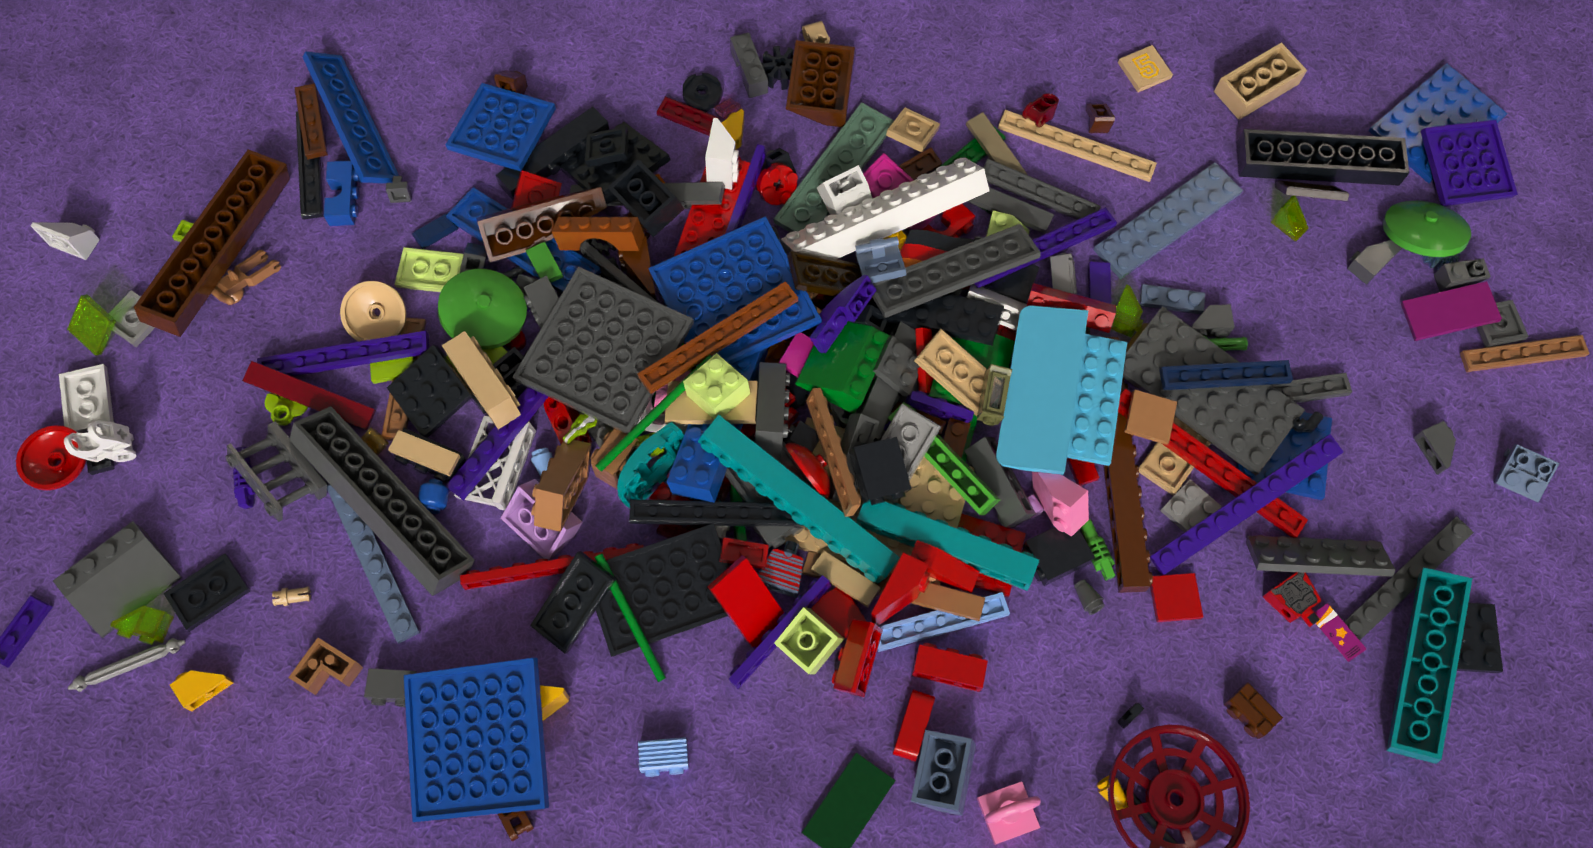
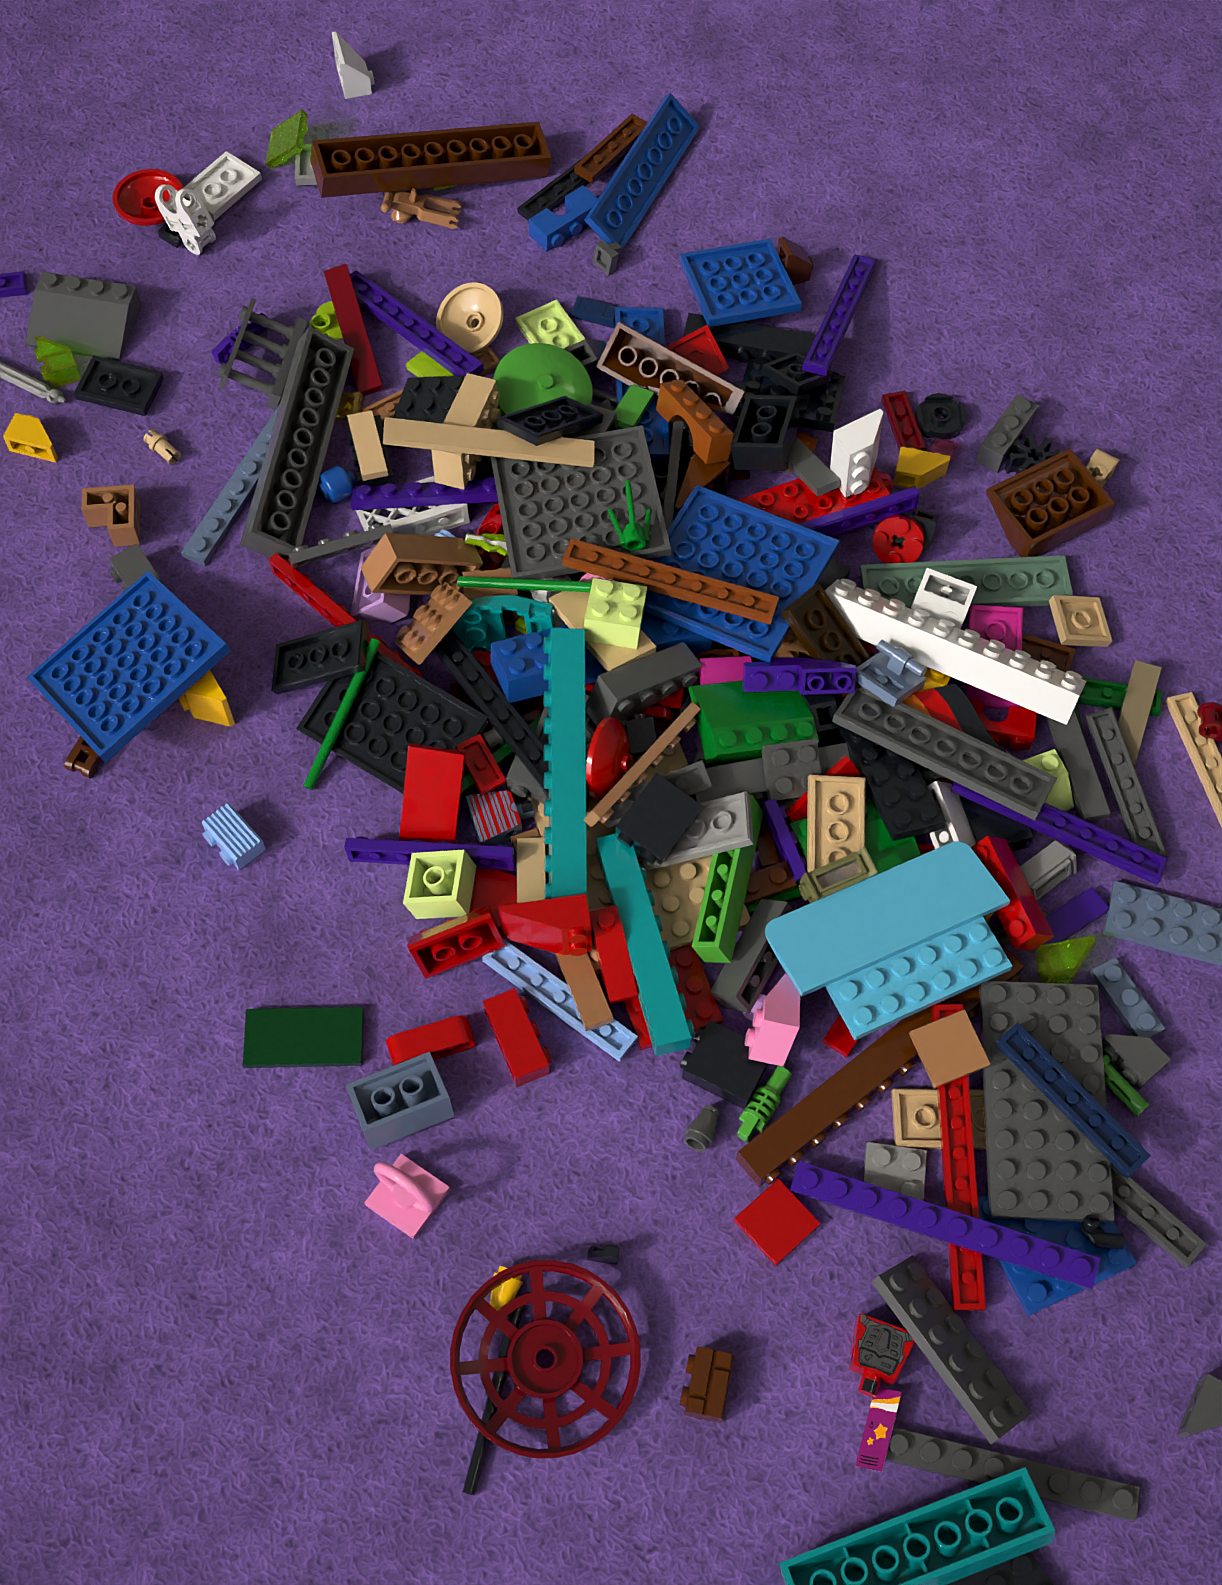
camera: 55 degrees right, 5 degrees down
(491, 536) = (330, 548): none -> dark grey plate
(514, 372) = (485, 442): none -> tan tile
(526, 320) = (550, 420): none -> black tile
(580, 89) = (839, 315): none -> dark purple tile
(612, 508) = (432, 622): none -> medium nougat plate
(667, 332) = (633, 536): none -> green plant

